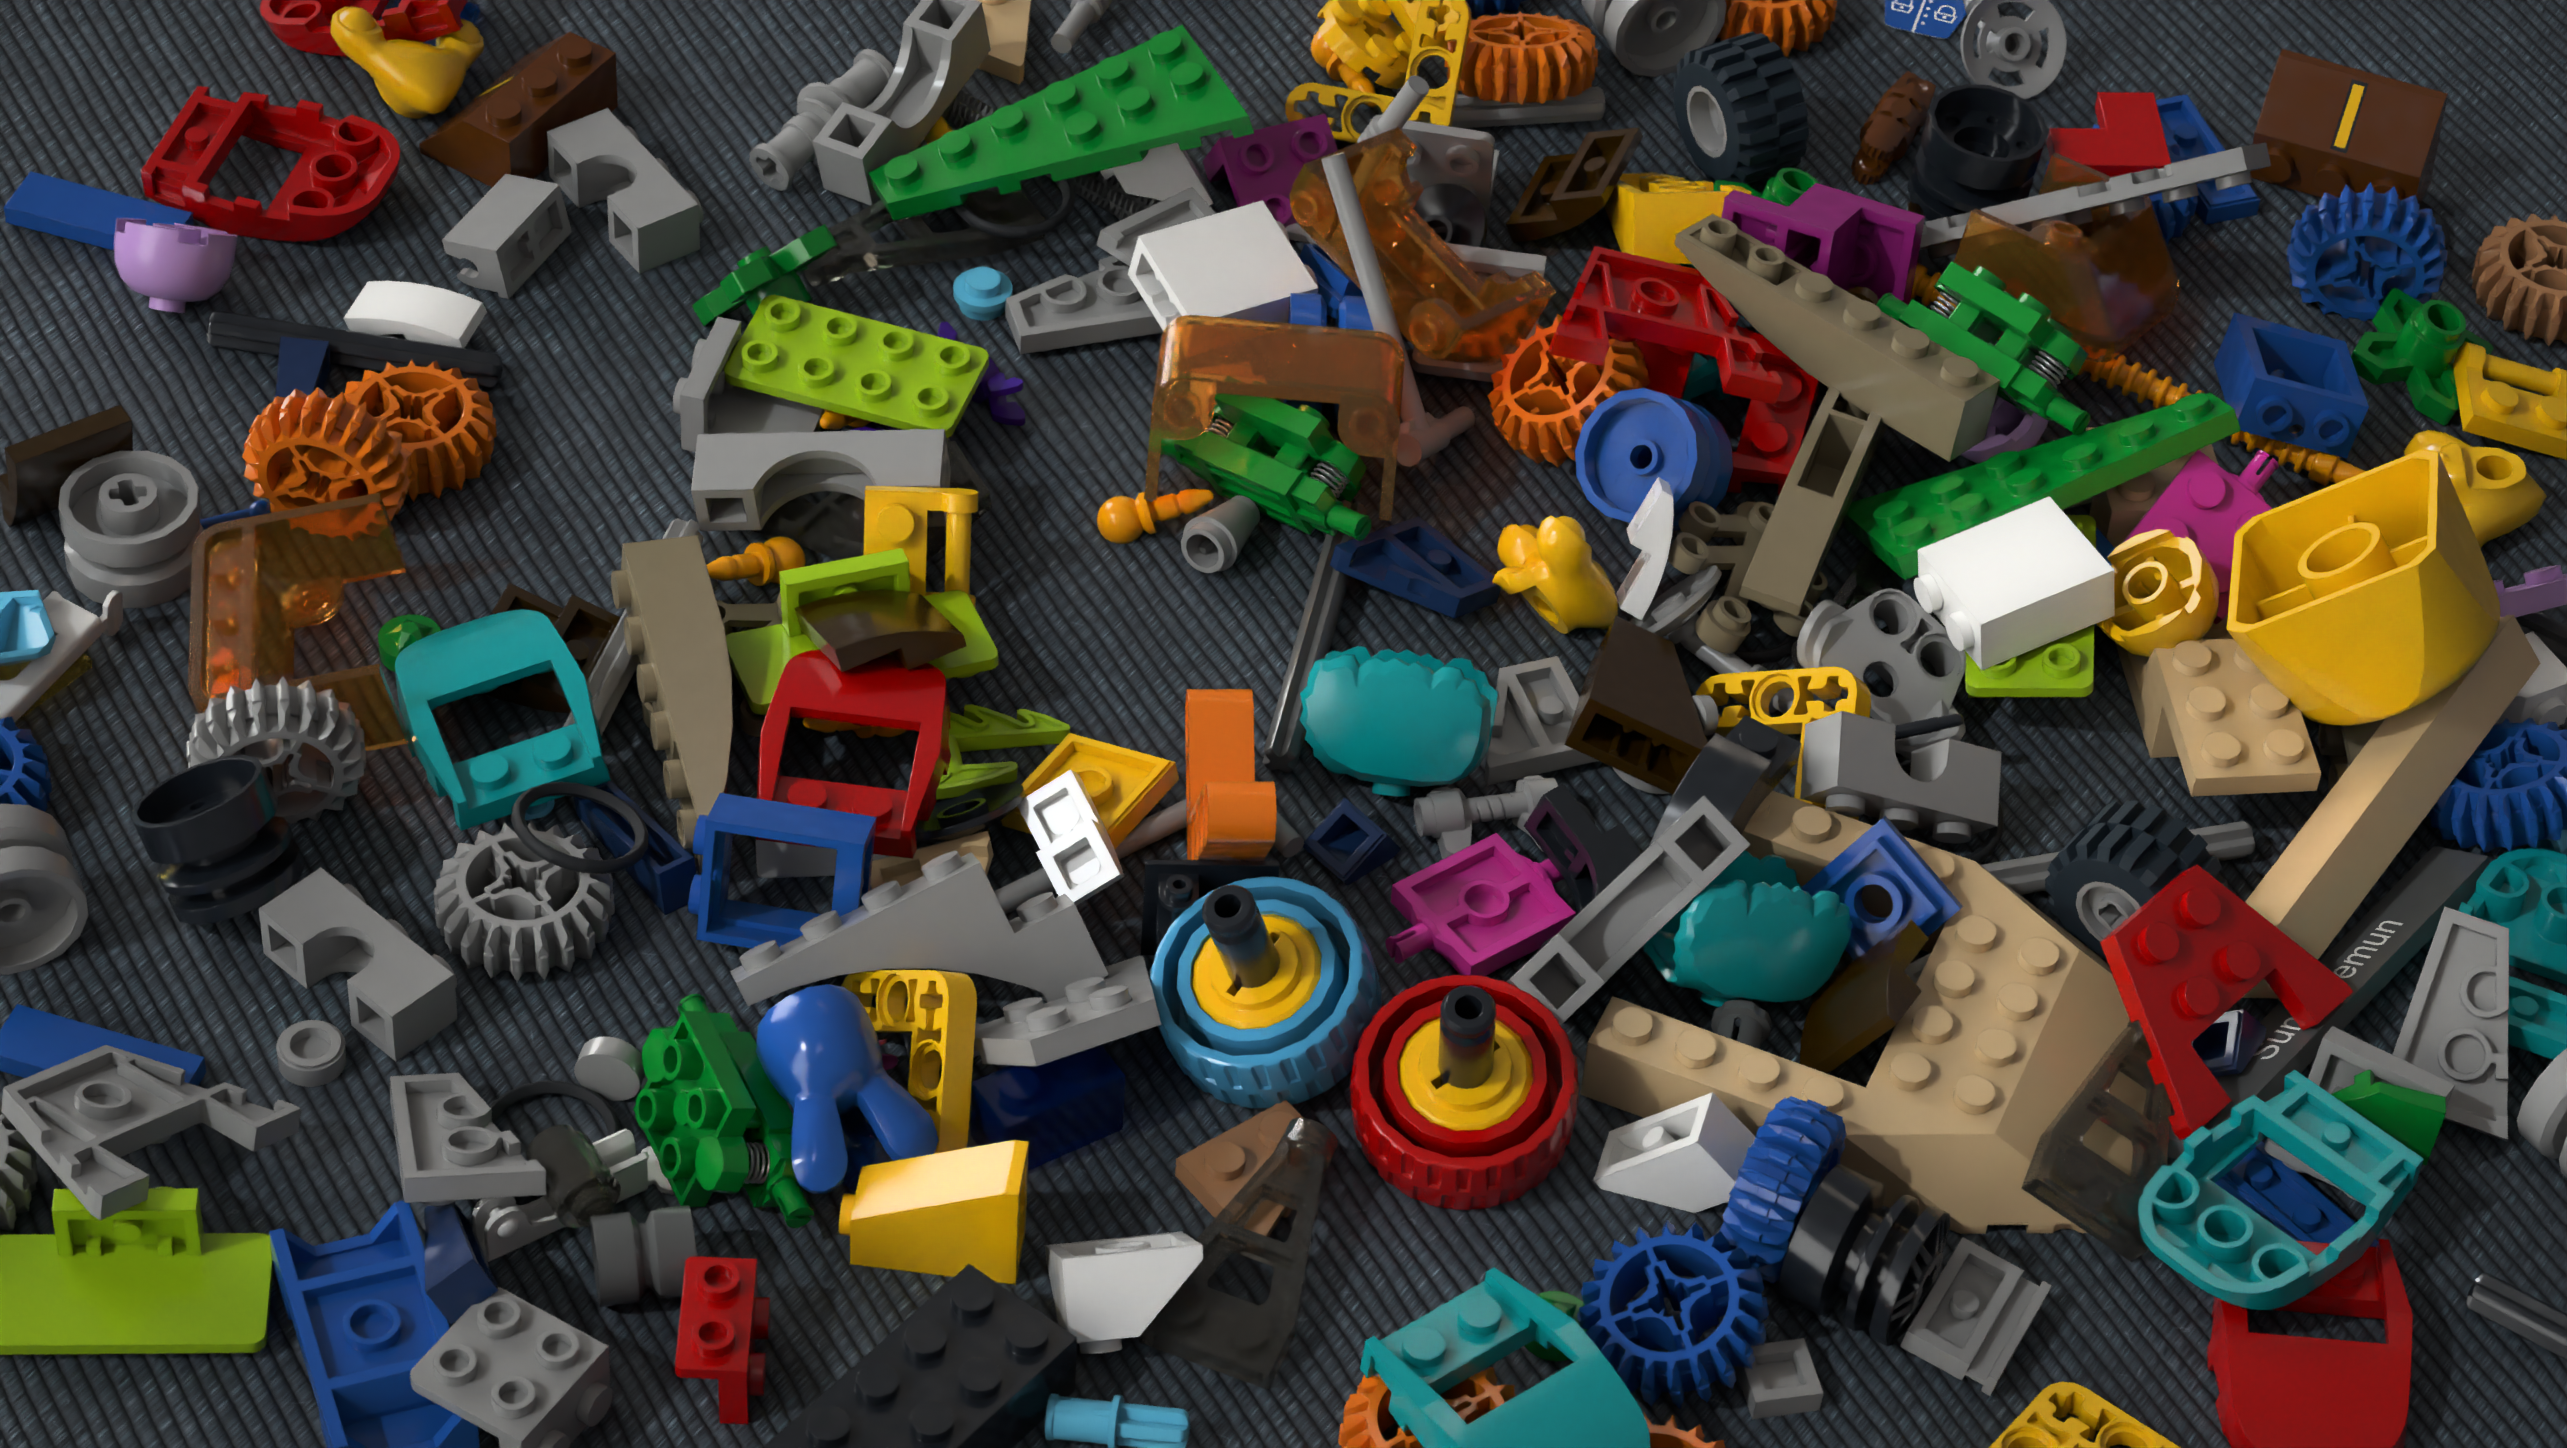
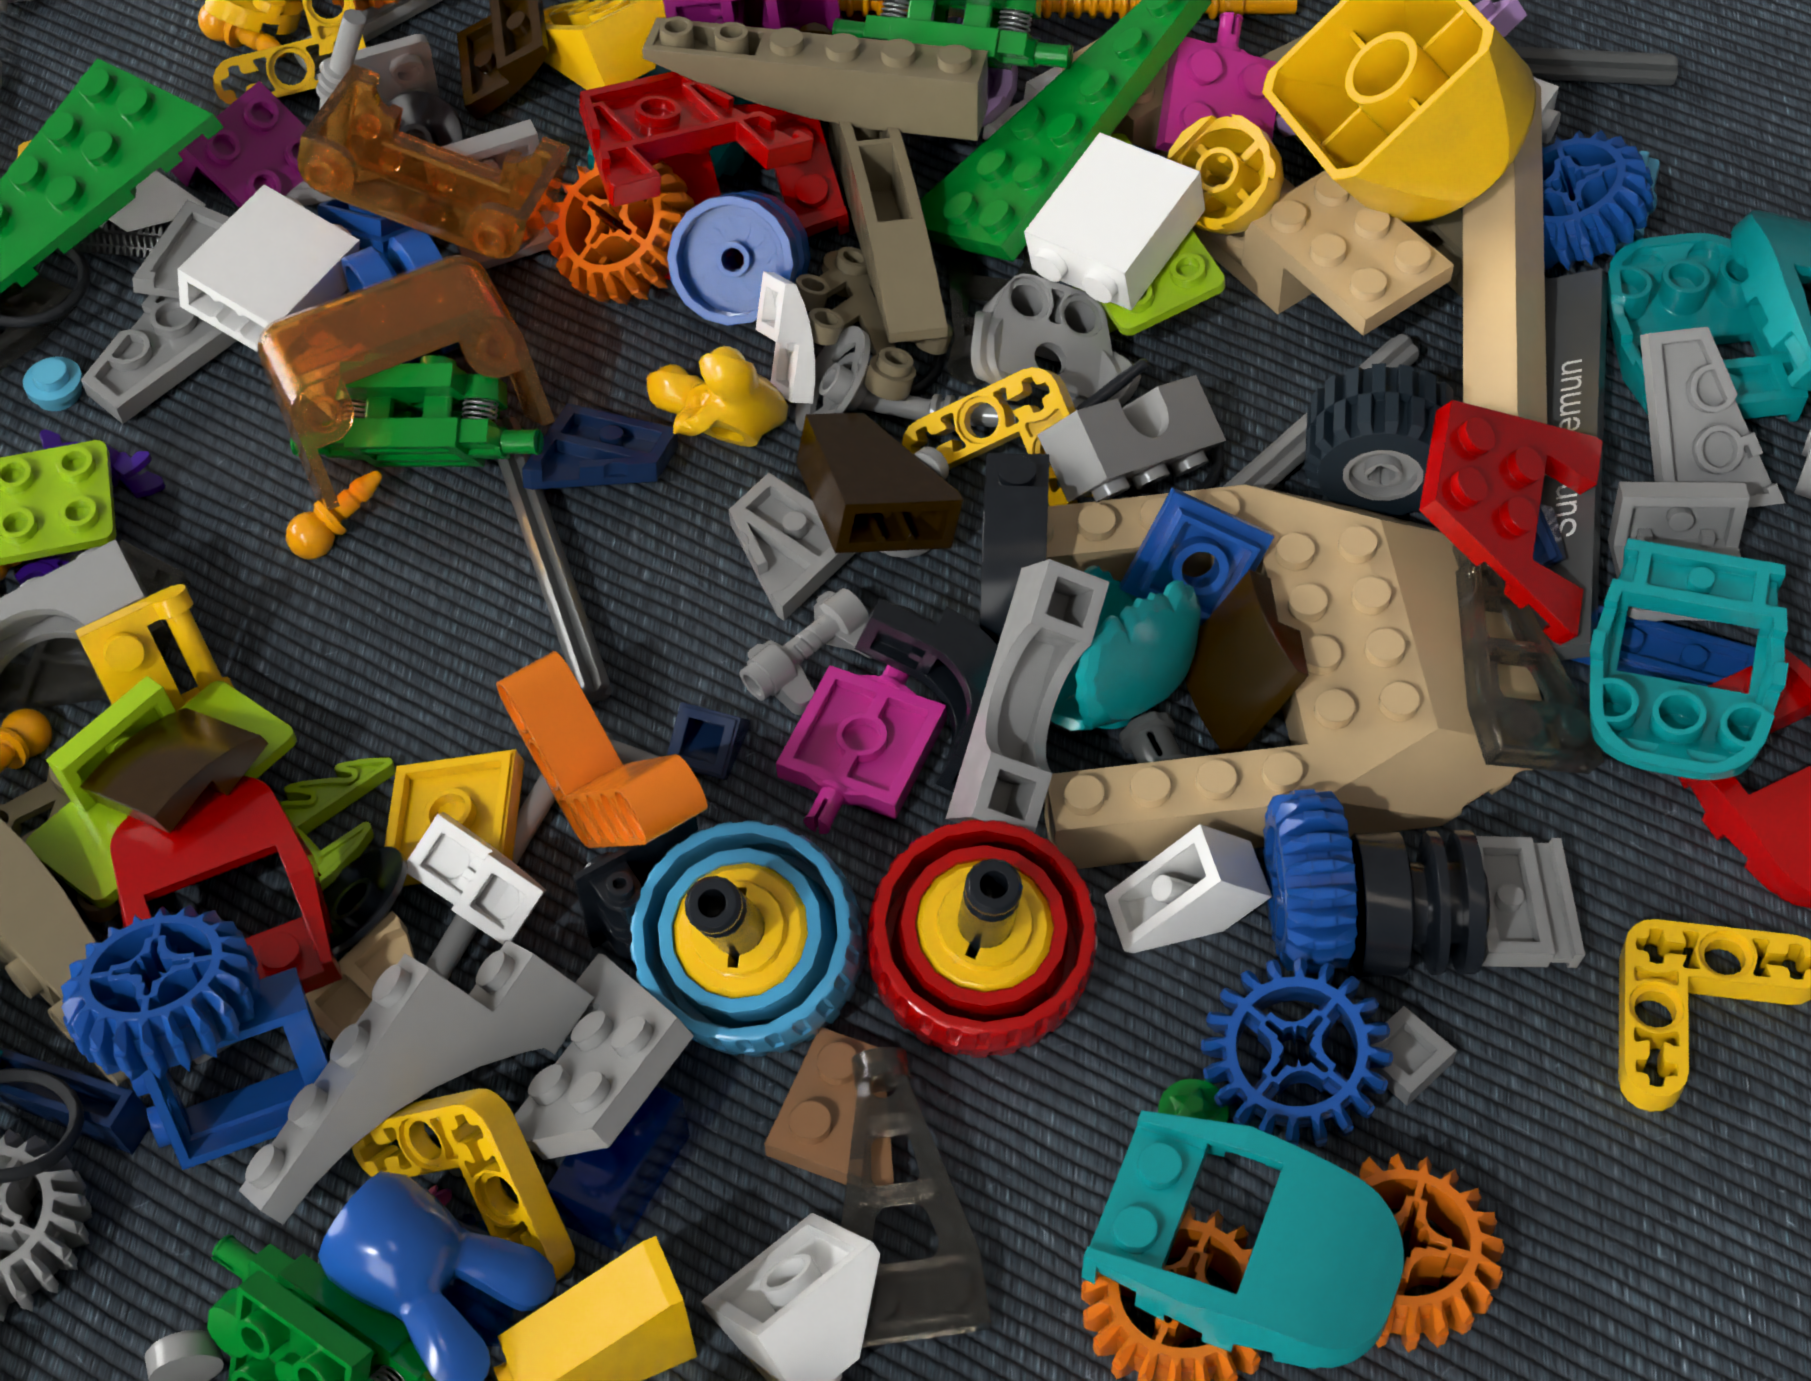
camera: 25 degrees left, 10 degrees up
(757, 772) = (161, 992): none -> blue gear
(1217, 536) = (407, 506): light grey cone -> none
(1398, 718) = (684, 602): teal animal -> none
(1419, 432) = (529, 319): light grey bar -> none
(2401, 1112) = (1721, 530): green slope -> none

